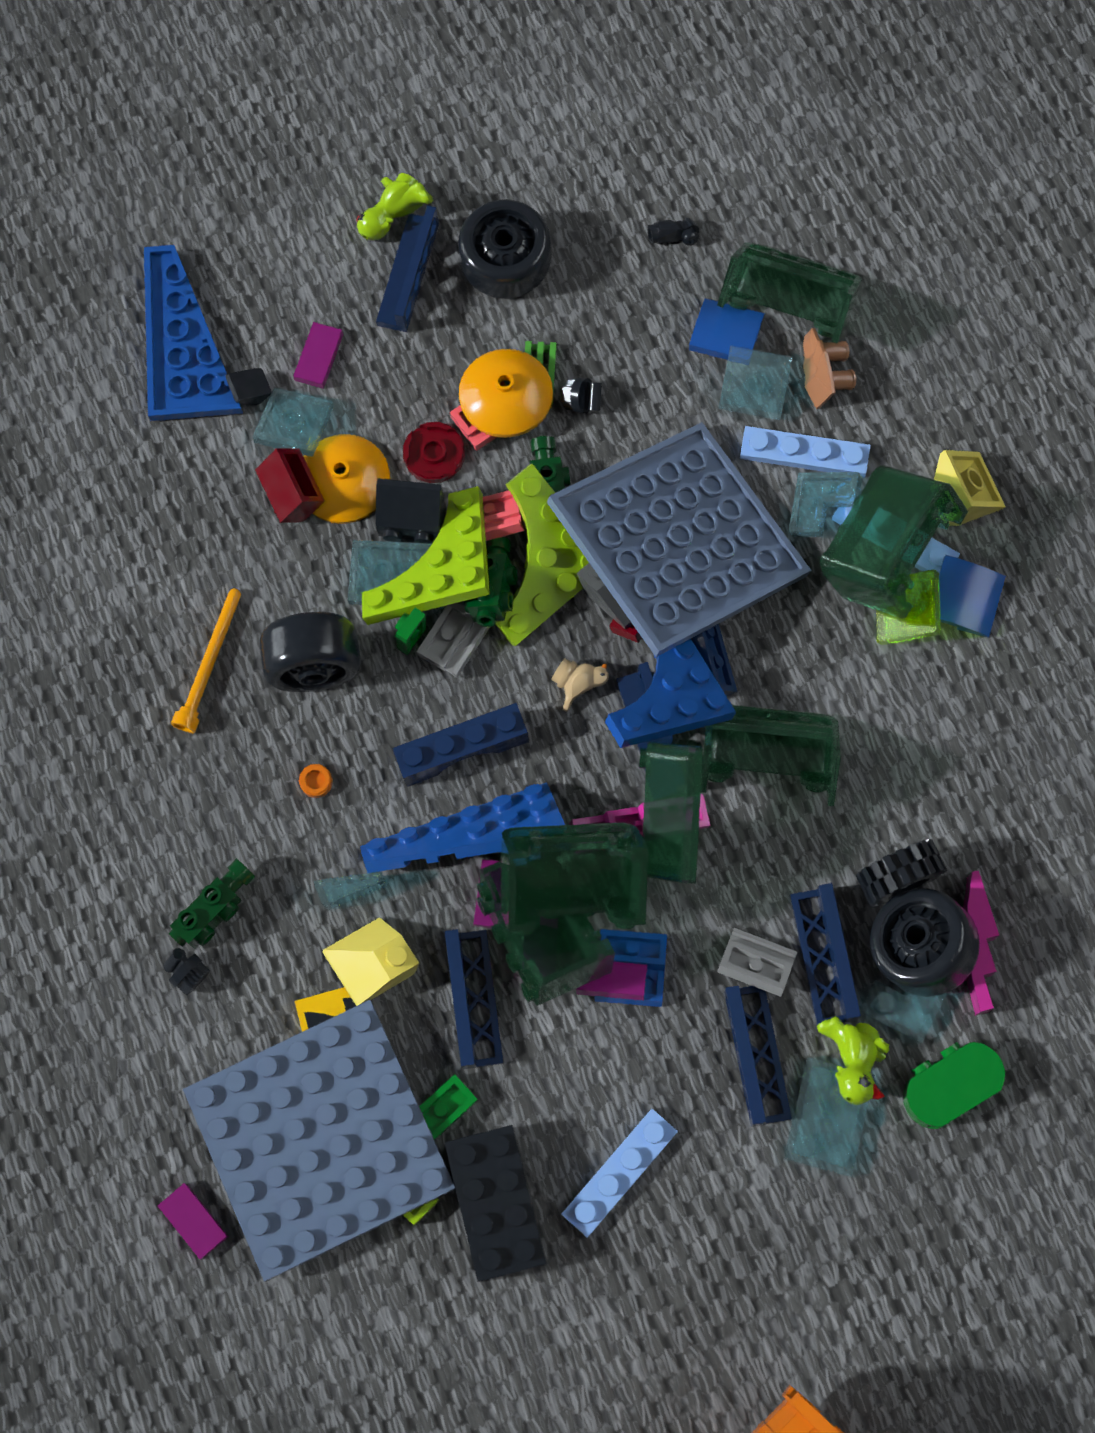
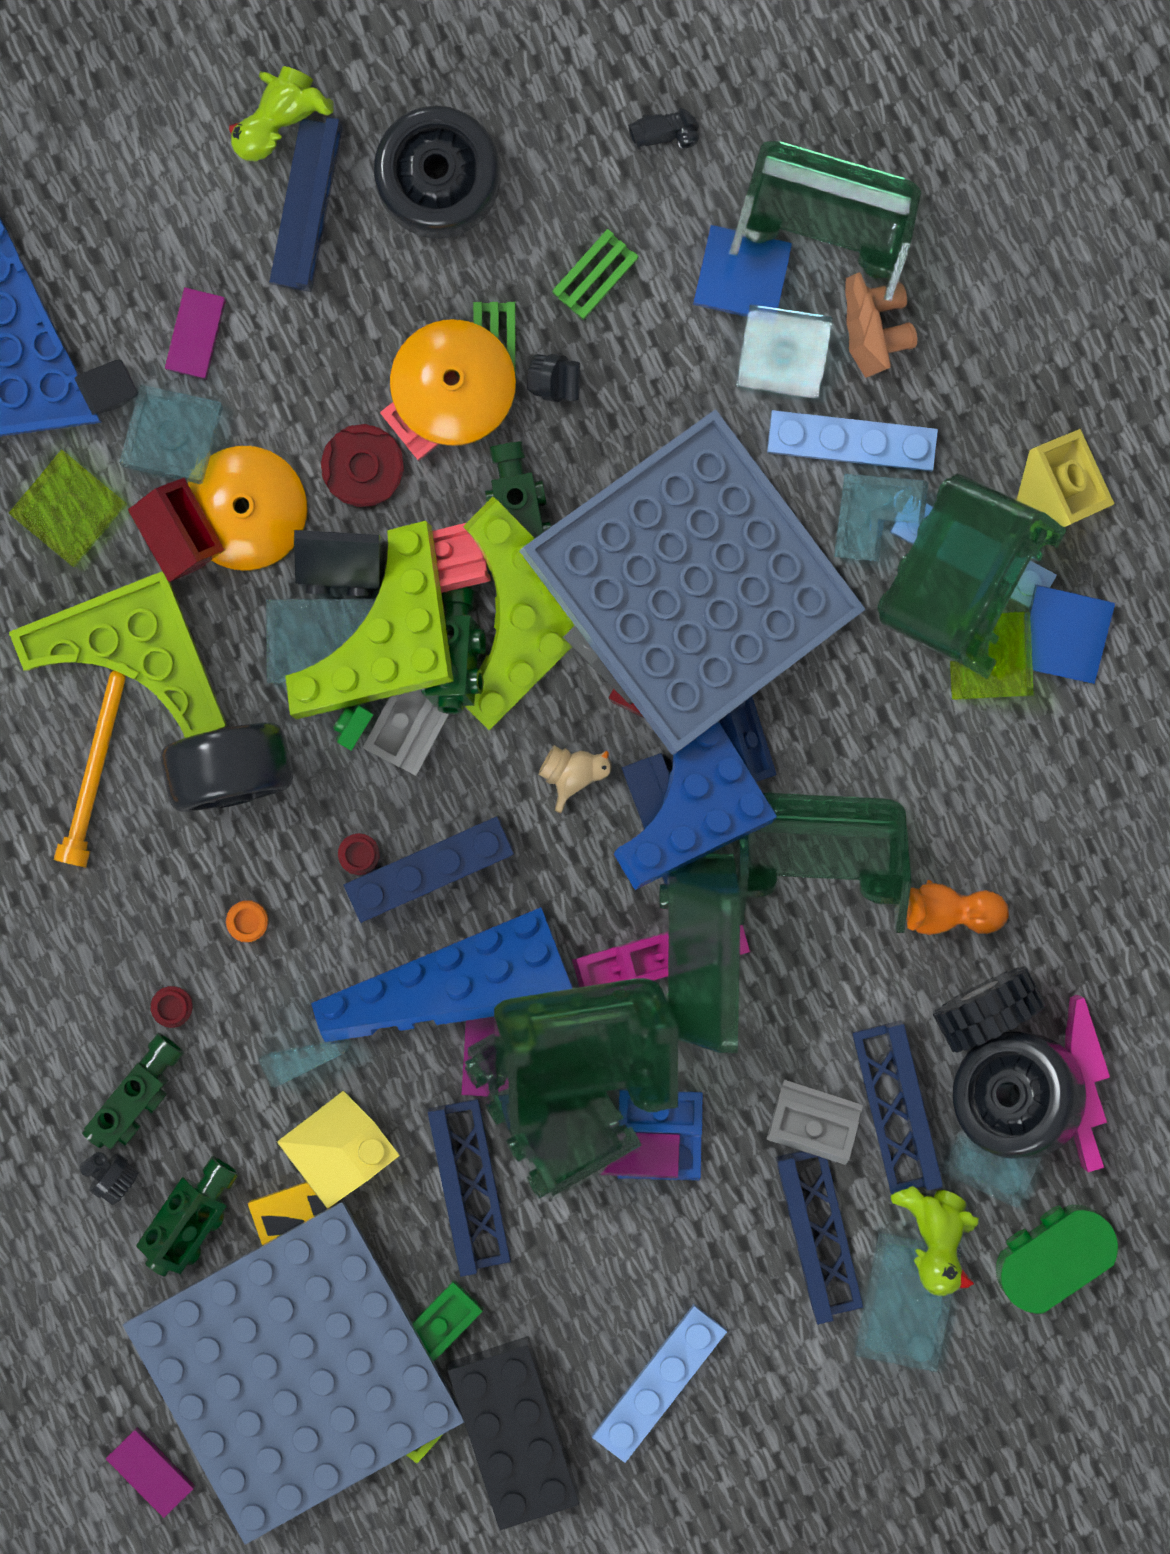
camera: 10 degrees left, 15 degrees up
(211, 471) = (67, 508): none -> clear neon green tile
(243, 1009) = (186, 1219): none -> dark green brick
(244, 559) = (136, 634): none -> lime plate
(250, 842) = (171, 1006): none -> dark red plate
(406, 731) = (358, 854): none -> dark red plate
(634, 310) = (618, 248): none -> bright green tile
(863, 794) = (939, 908): none -> orange animal

